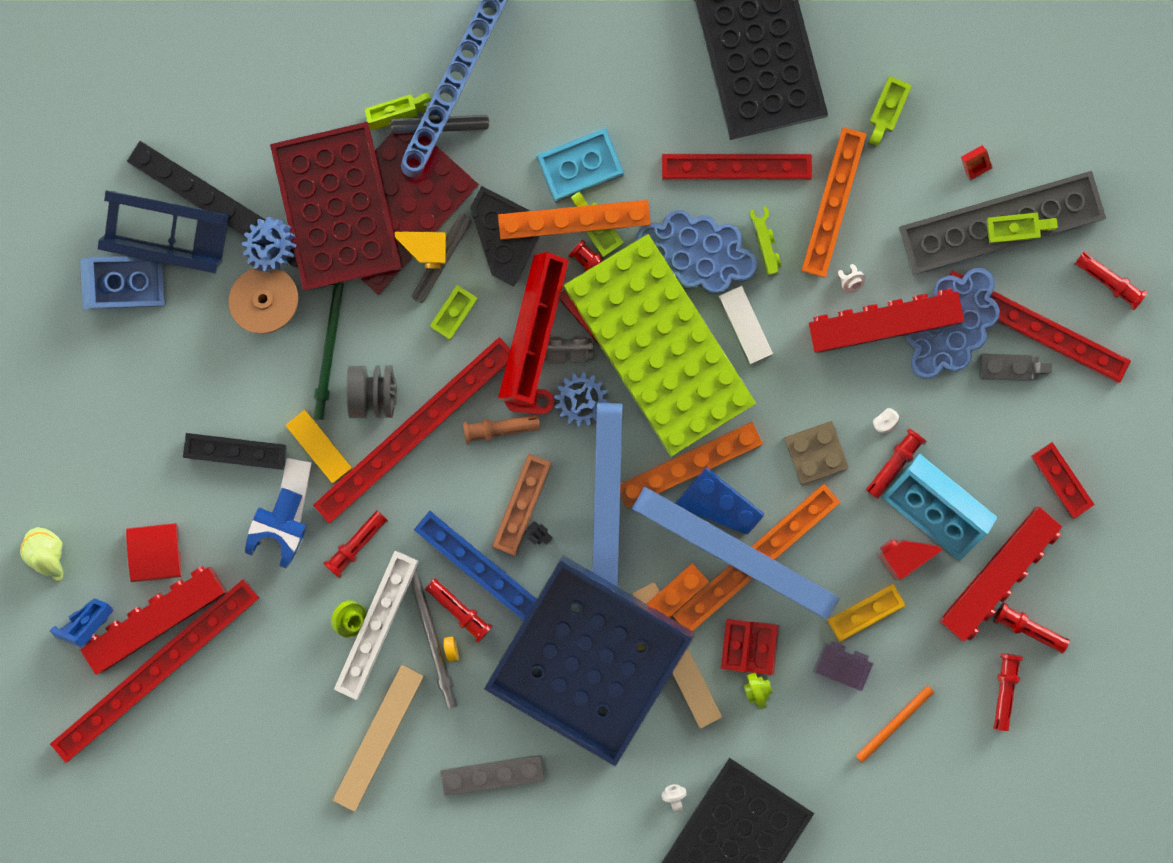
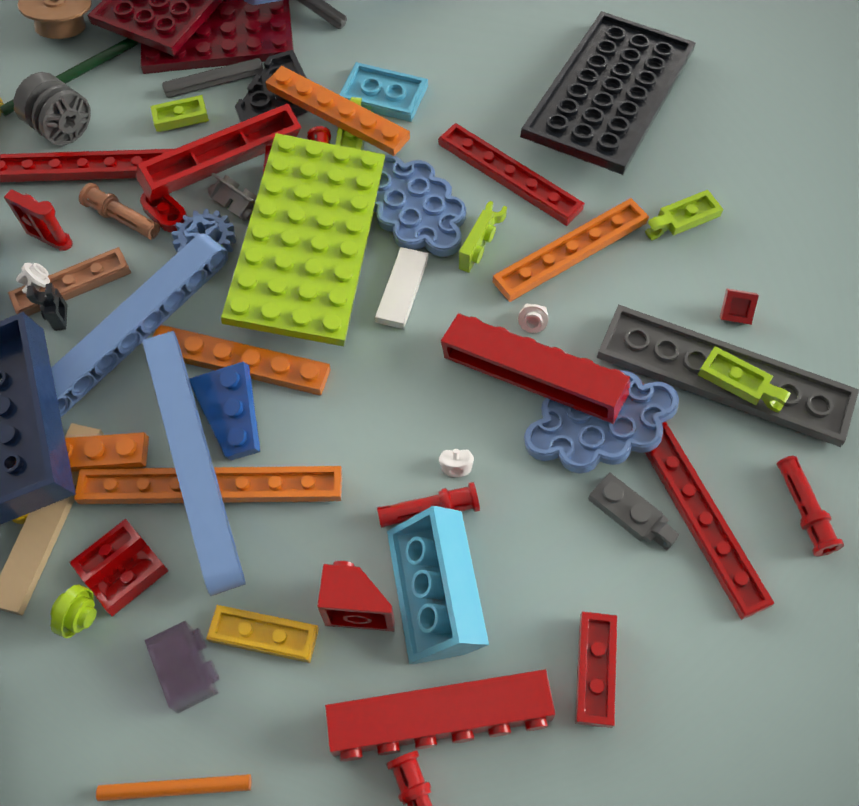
camera: 40 degrees right, 25 degrees down
(425, 247) = (206, 49): yellow slope -> none
(457, 484) = (38, 219): none -> red plate
(507, 522) = (34, 275): none -> white plate
(816, 452) = (362, 438): dark tan plate -> none

